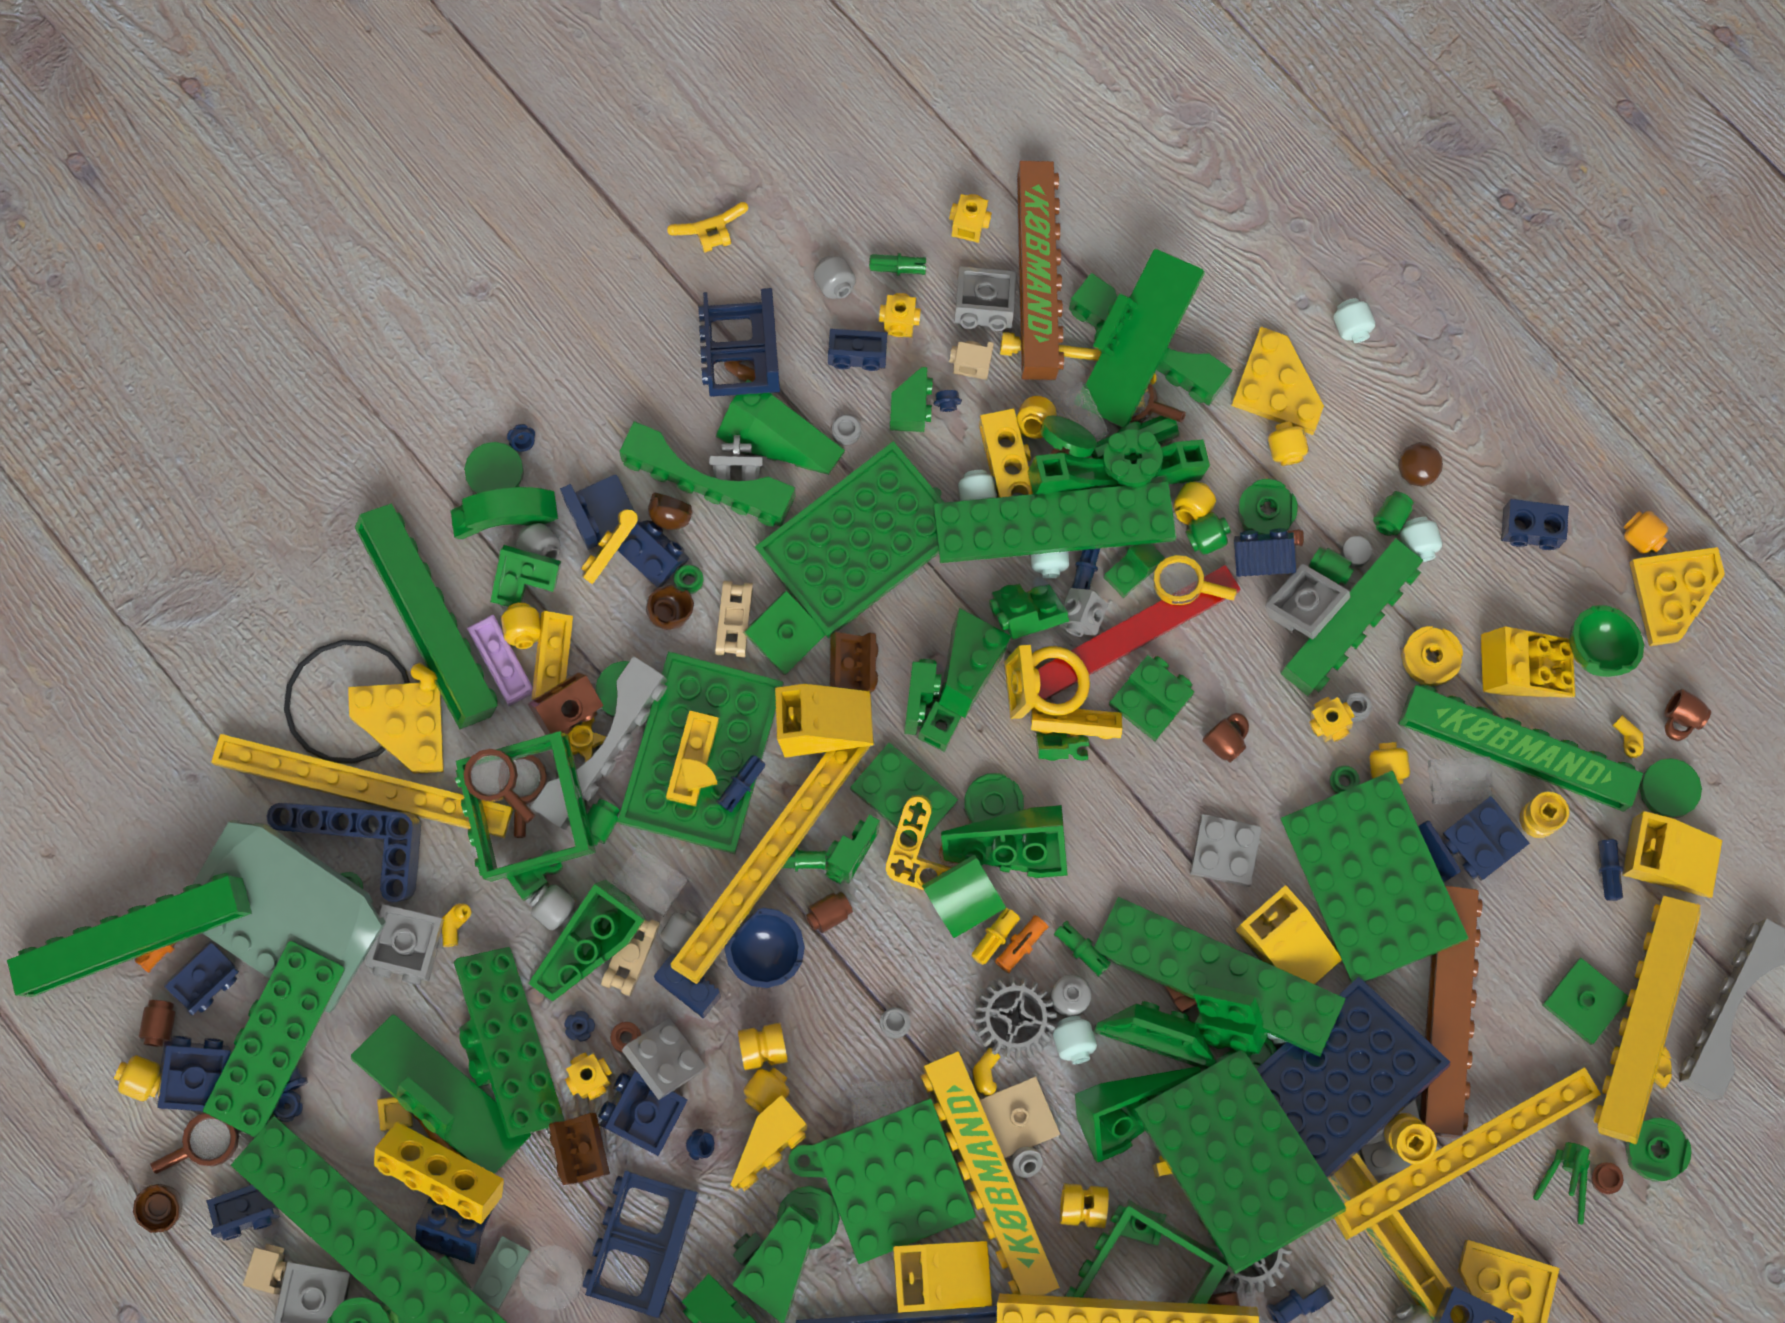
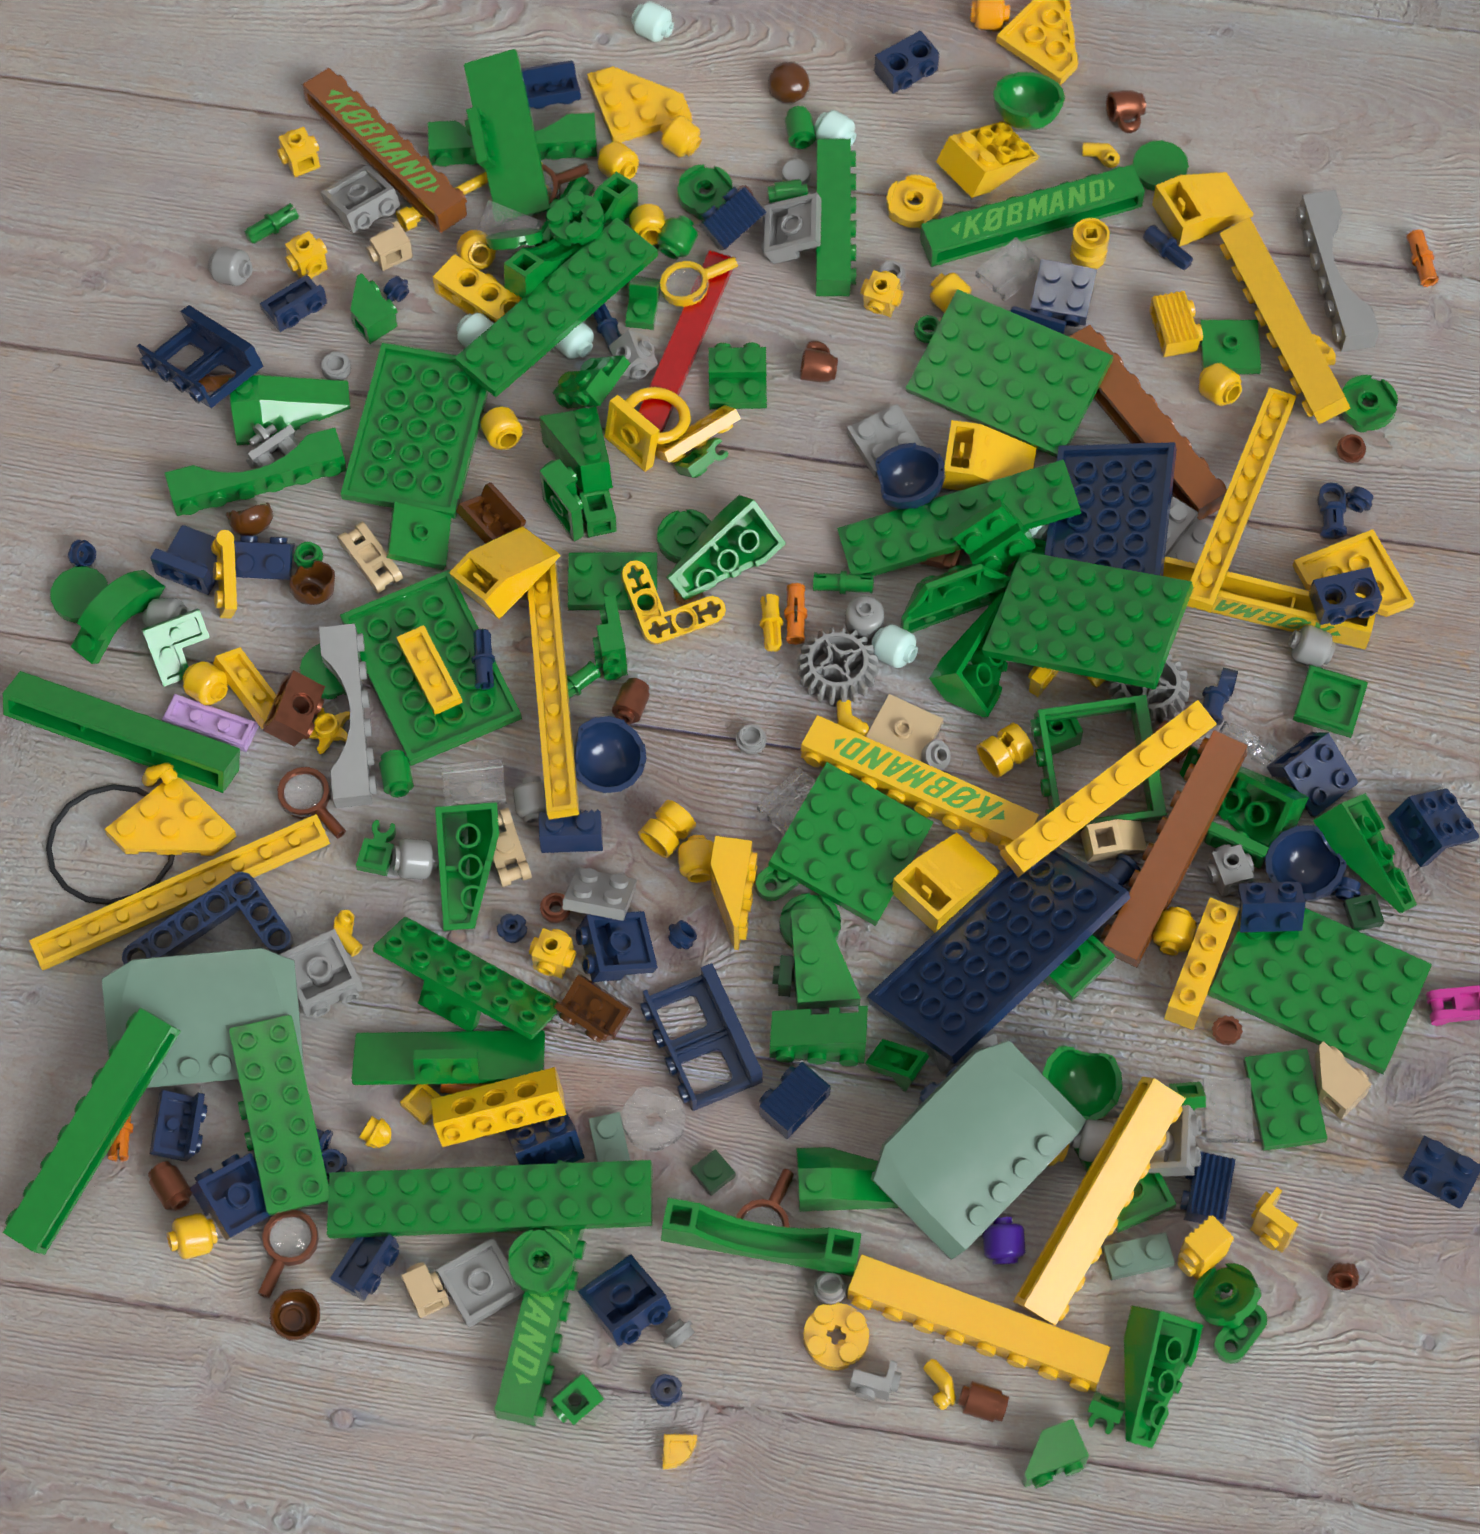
camera: 35 degrees left, 10 degrees down
(338, 1110) = (376, 1133): none -> yellow plate
(479, 833) = (313, 730): green window -> none
(493, 776) = (286, 790): piece -> none
(697, 774) = (444, 673): yellow tile -> none
(714, 223) = (101, 295): yellow piece -> none
(926, 591) = (501, 428): none -> yellow head
(964, 896) = (724, 609): green slope -> none
(1212, 903) = (910, 475): none -> dark blue cylinder
(1217, 427) = (618, 158): none -> yellow head
(1220, 314) = (551, 84): none -> dark blue bracket
(1410, 1138) = (1193, 515): yellow wheel -> none
(1540, 1222) = (1332, 512): none -> dark blue connector
(1544, 1030) = (1220, 384): none -> yellow head
(1555, 944) = (1175, 323): none -> yellow brick
(1573, 1230) = (1359, 499): none -> dark blue plate
(1575, 1161) = (1319, 454): green plant -> none

